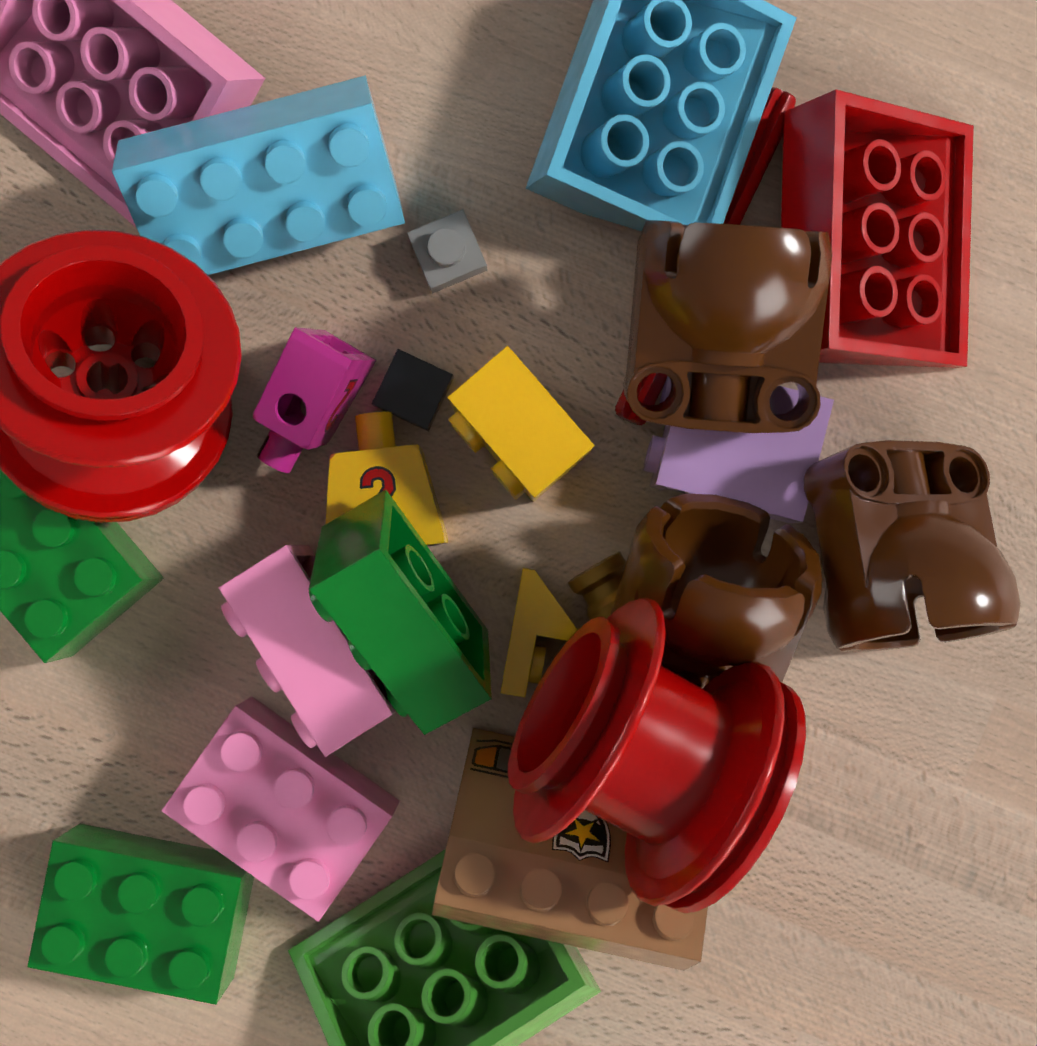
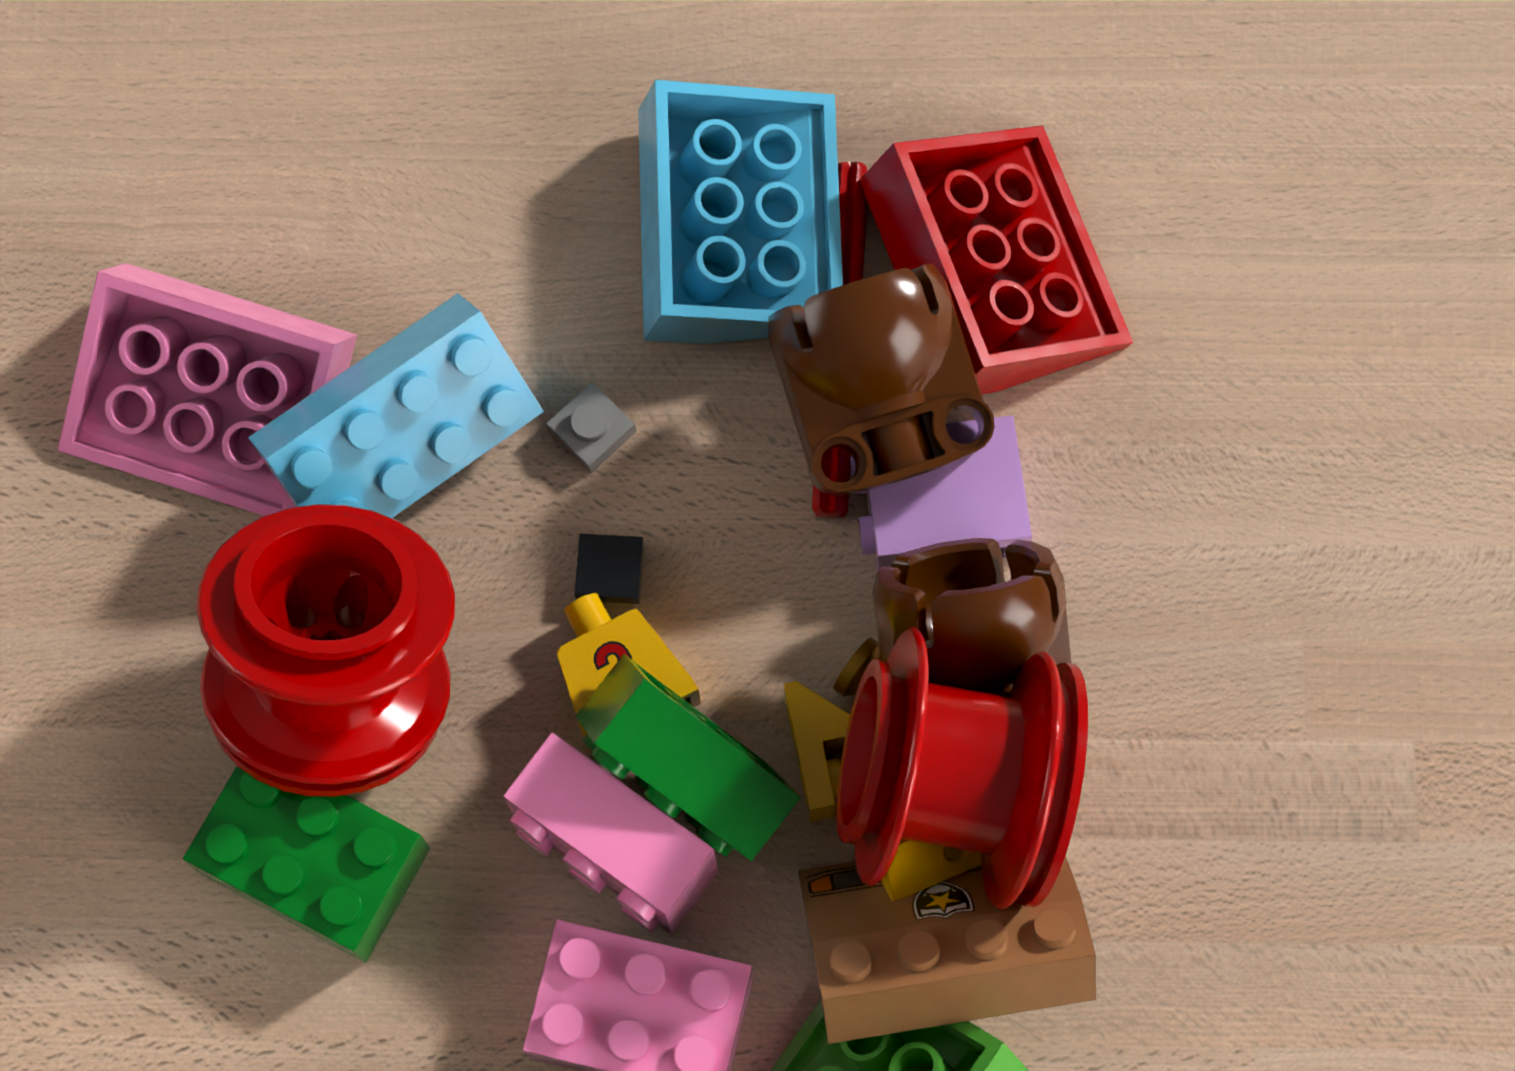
camera: 20 degrees left, 15 degrees down
(327, 379) = (511, 577): dark pink torso -> none
(519, 426) = (727, 555): yellow brick -> none
(906, 527) = (1134, 514): reddish brown piece -> none

